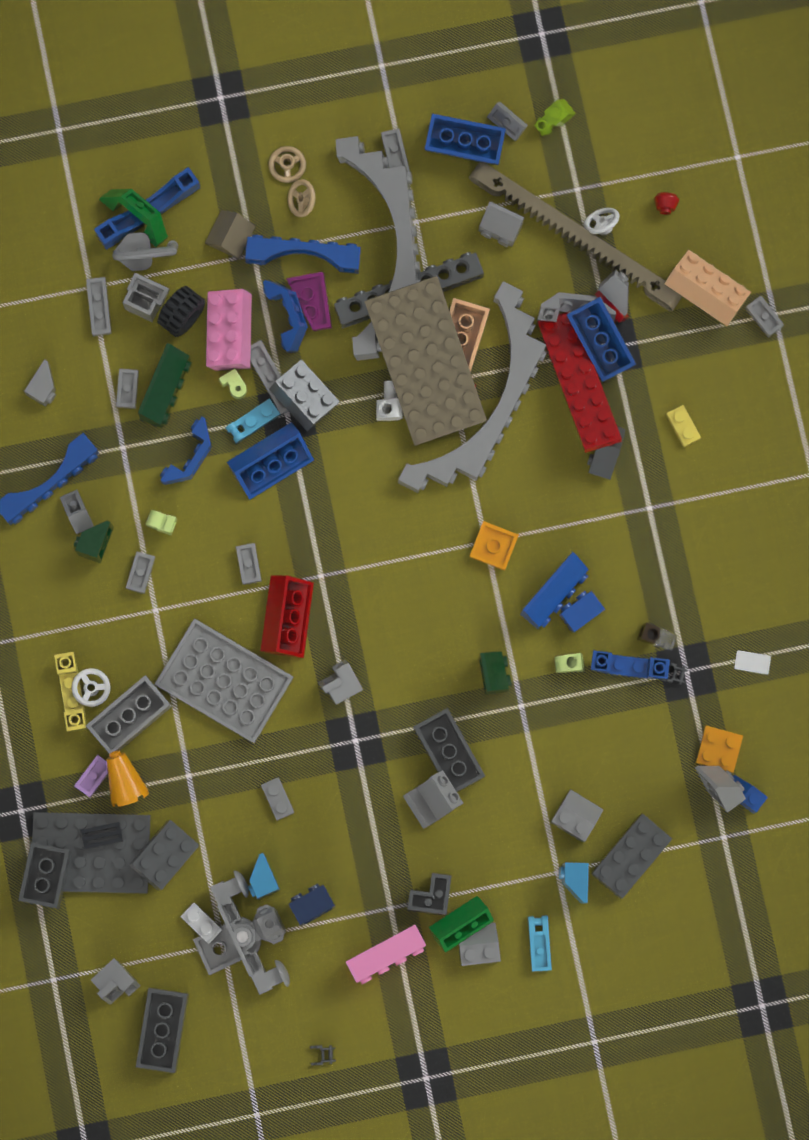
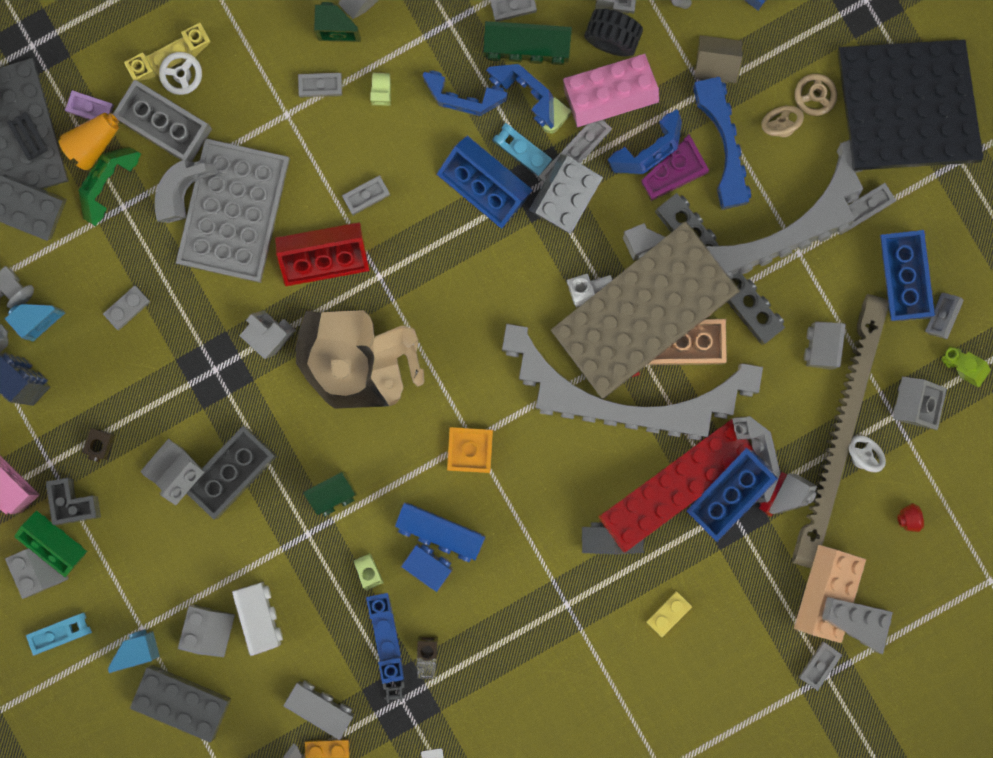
camera: 75 degrees right, 5 degrees up
(159, 786) = (101, 171): none -> green slope
(186, 414) = (507, 74): none -> blue slope
(186, 723) = (173, 186): none -> light grey arch
(322, 90) = (909, 105): none -> black plate
(379, 858) = (107, 440): none -> dark brown brick
(390, 619) = (350, 363): none -> tan piece
(573, 165) = (919, 403): none -> light grey slope
(579, 767) = (257, 618): none -> white slope
(672, 740) = (319, 709): none -> light grey brick
(738, 271) = (859, 621): none -> light grey wing

